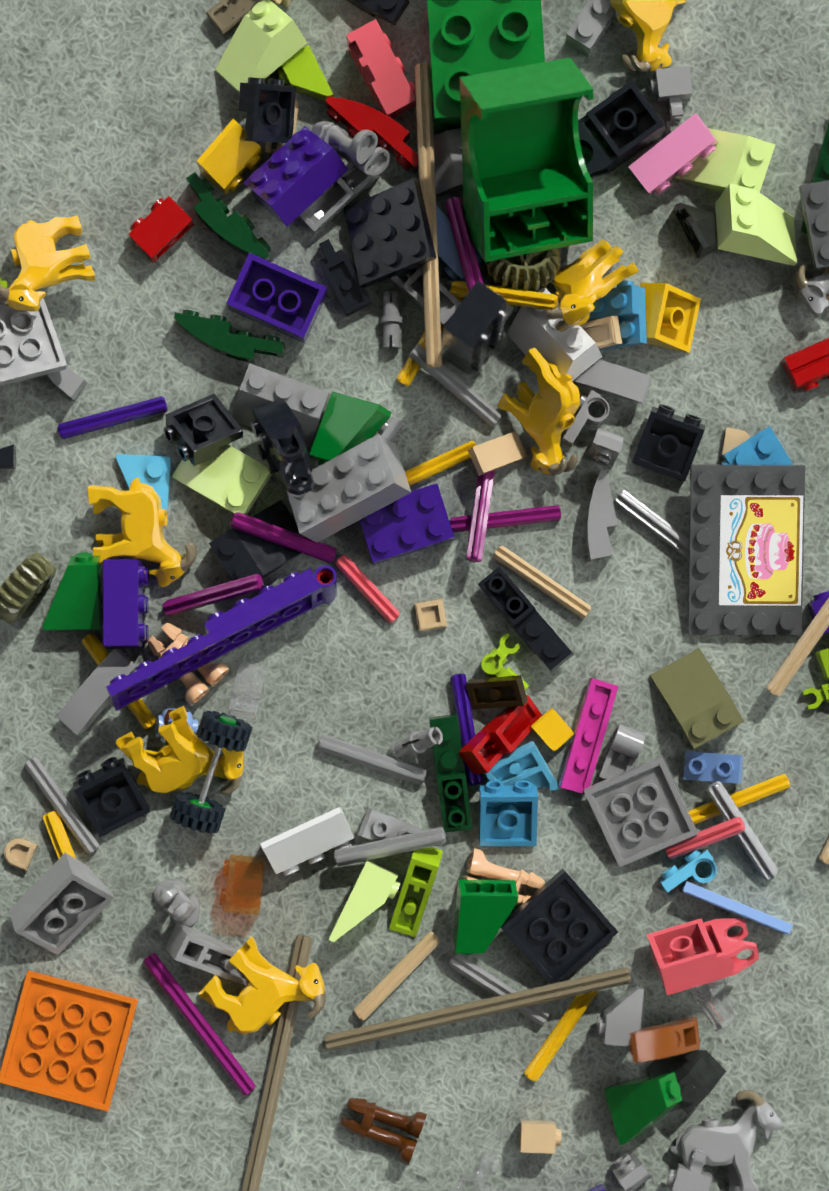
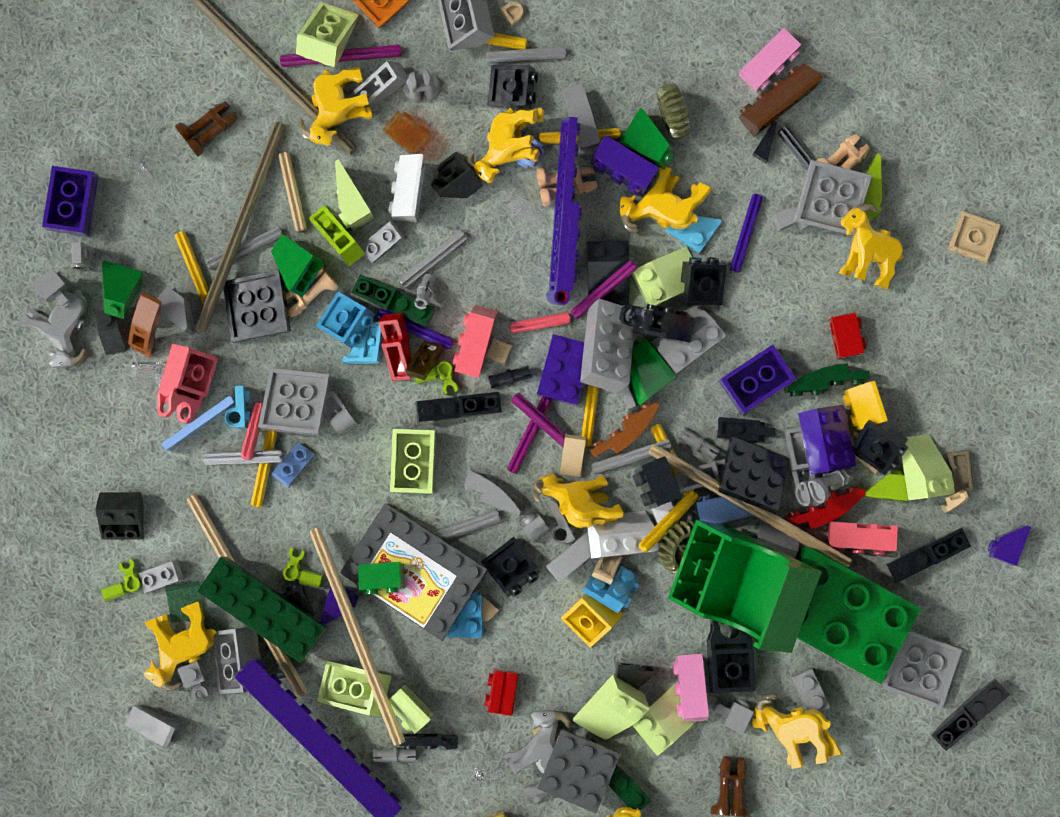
camera: 125 degrees right, 0 degrees up
(185, 1055) = (326, 34): none -> yellowish green slope
(197, 810) = (469, 133): black axle -> none
(213, 595) = (595, 223): magenta axle -> none
(217, 335) = (757, 328): dark green slope -> none
(262, 793) = (455, 178): none -> pearl dark grey slope
(390, 846) = (371, 234): light grey axle -> none
(419, 404) = (633, 427): none -> dark orange slope
(436, 648) = (474, 341): none -> coral wedge
(452, 583) = (510, 376): none -> black pin
(463, 242) = (712, 515): magenta axle -> none
(539, 1136) = (140, 215): tan brick -> none
(541, 582) = (475, 433): tan axle -> none
(552, 729) = (379, 380): yellow slope -> none
(581, 283) = (642, 574): yellow animal -> none
(588, 735) = (362, 400): dark pink plate -> none
(621, 630) = (413, 461): none -> yellowish green brick
(696, 699) = (341, 481): olive slope -> none
(777, 580) = (381, 576): none -> green brick
(782, 39) = (723, 805): none -> reddish brown piece

